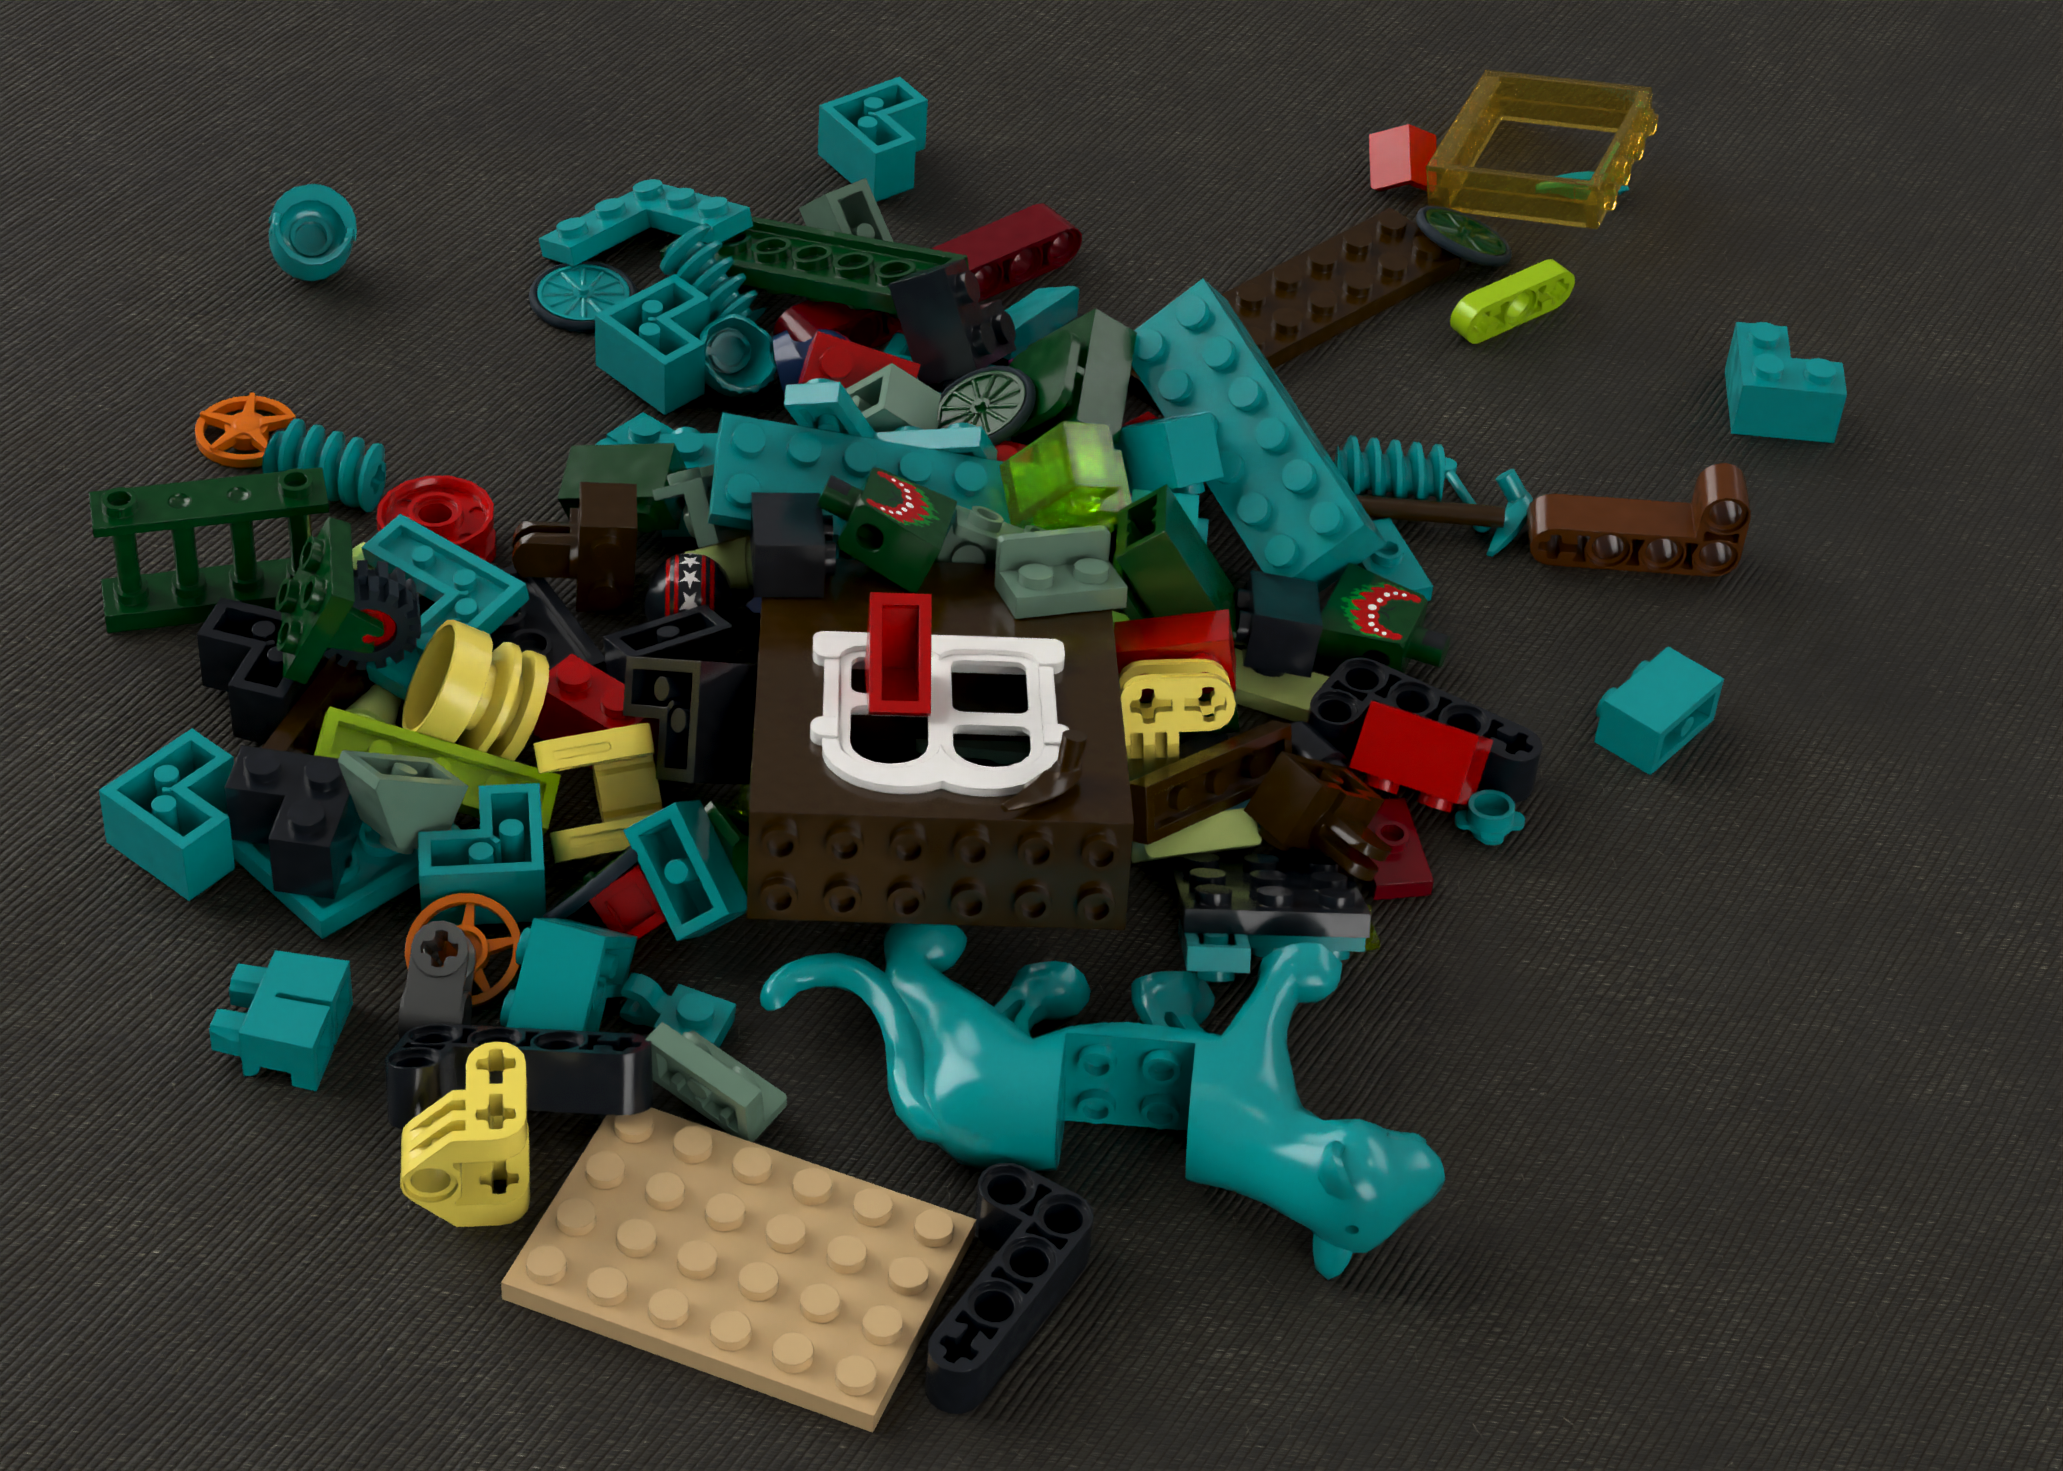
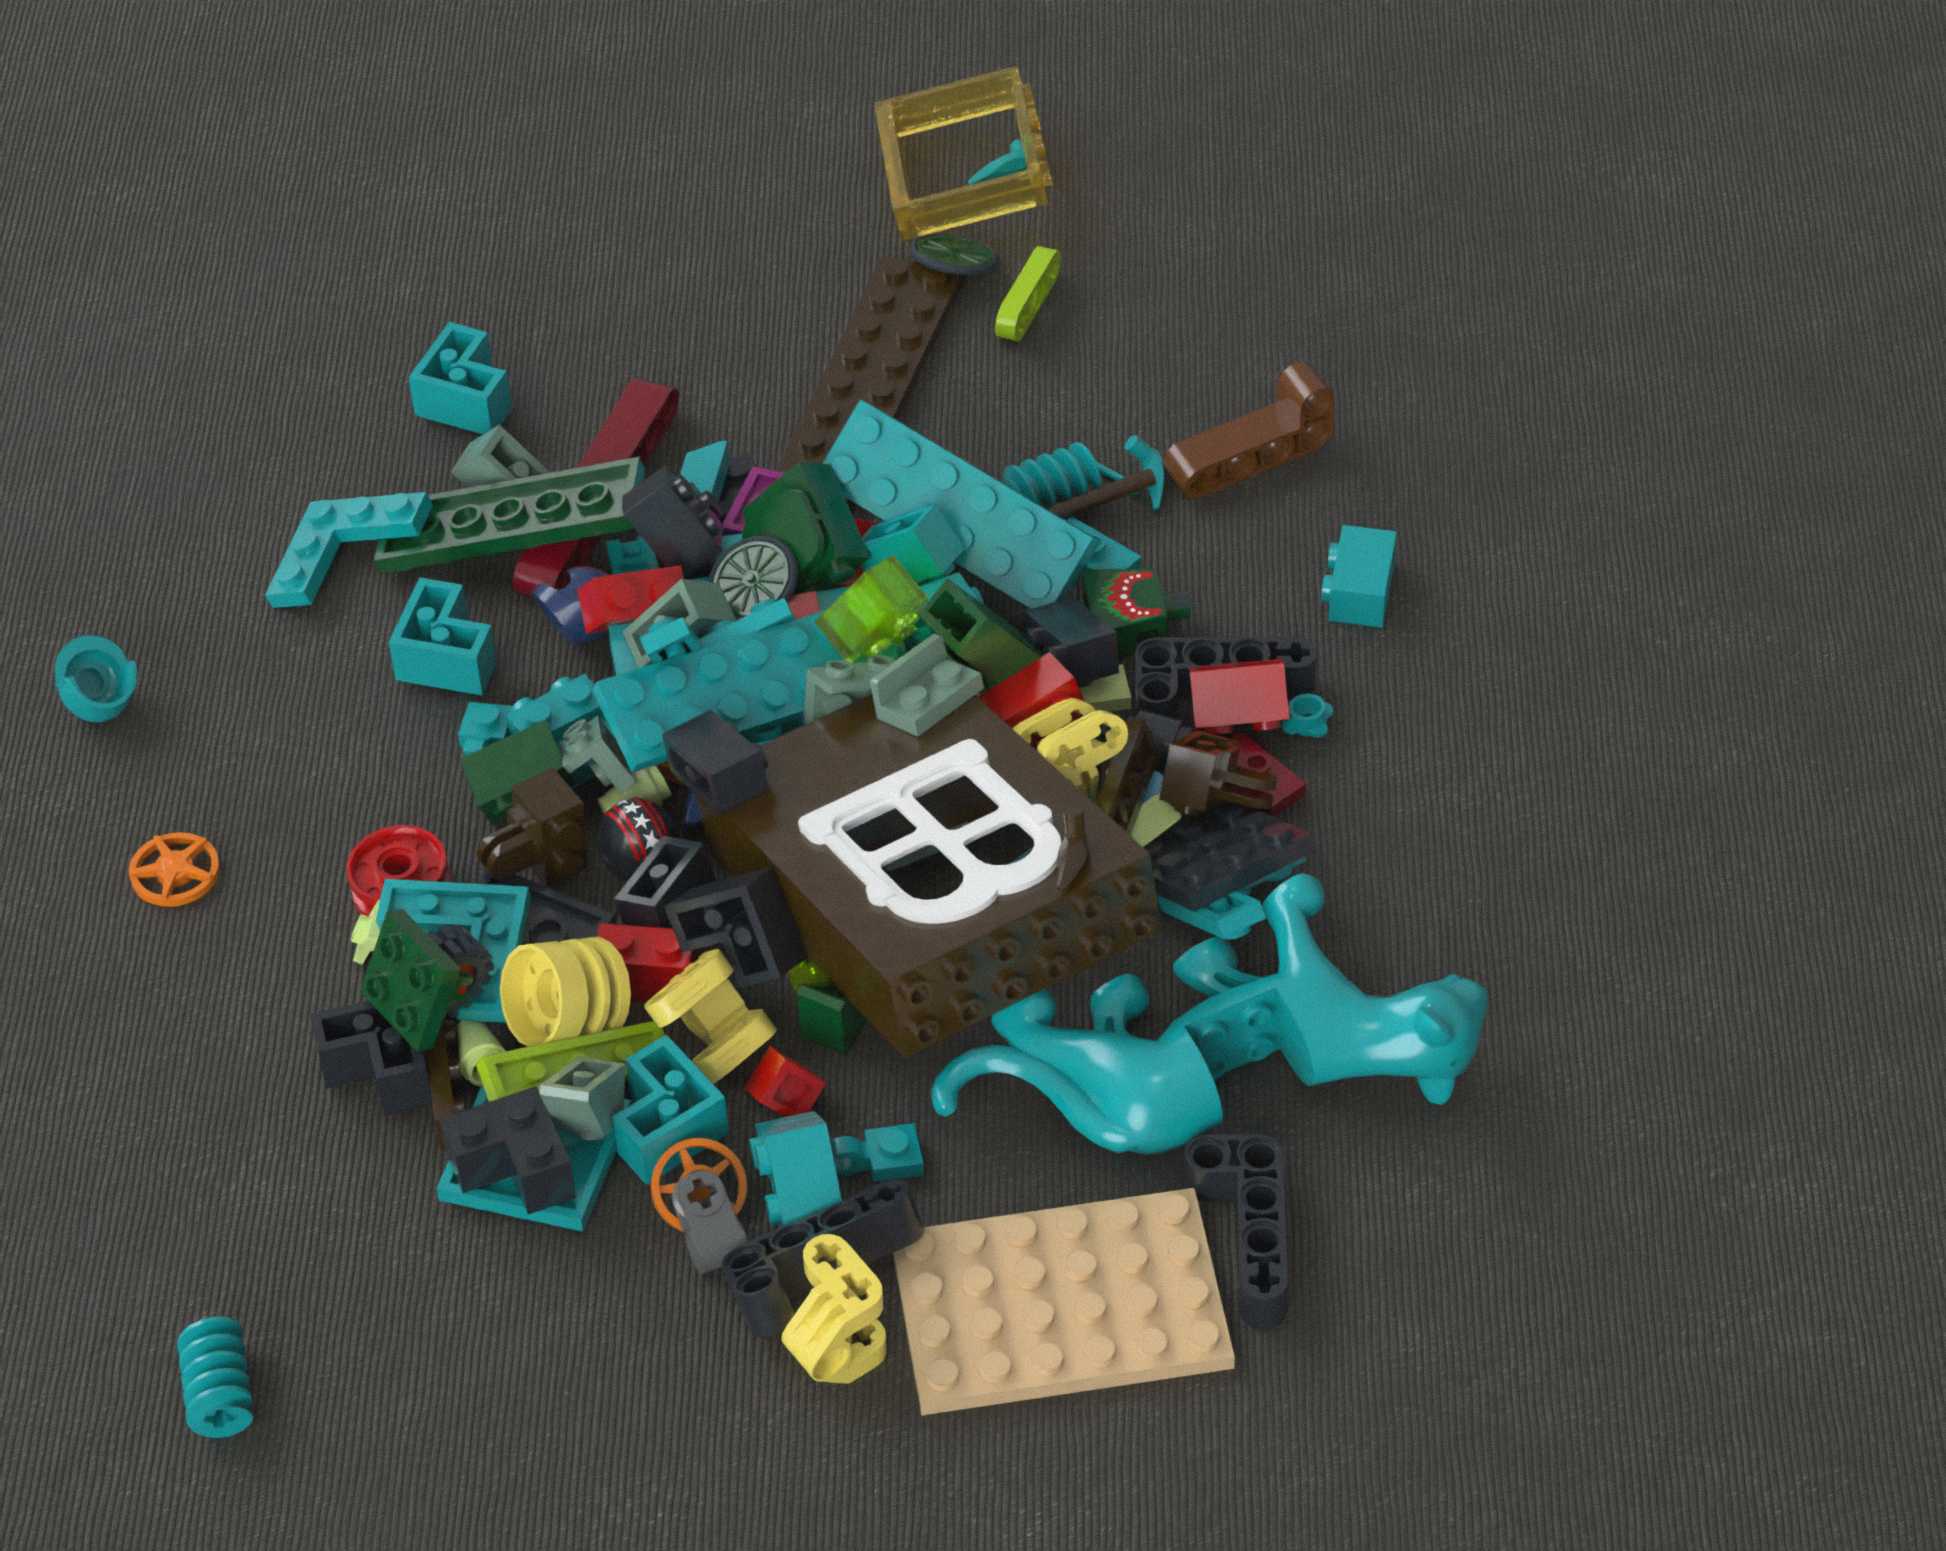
camera: 25 degrees left, 5 degrees up
(173, 814) = (407, 1202): teal brick -> none
(192, 592) = (281, 1002): dark green fence -> none
(291, 1017) = (621, 1298): teal hips -> none
(347, 472) = (273, 865): teal piece -> none
(573, 294) = (335, 626): teal wheel -> none
(593, 884) = (756, 1088): black wheel -> none
(687, 869) = (819, 1043): teal brick -> none
(696, 265) = (441, 565): teal piece -> none
(714, 1082) = (954, 1187): sand green bracket -> none
(737, 356) = (513, 620): teal hair -> none
(890, 524) = (783, 709): dark green torso -> none
(899, 654) = (892, 811): red slope -> none
(1400, 157) = (862, 210): panel -> none
(1778, 393) = (1263, 280): teal brick -> none

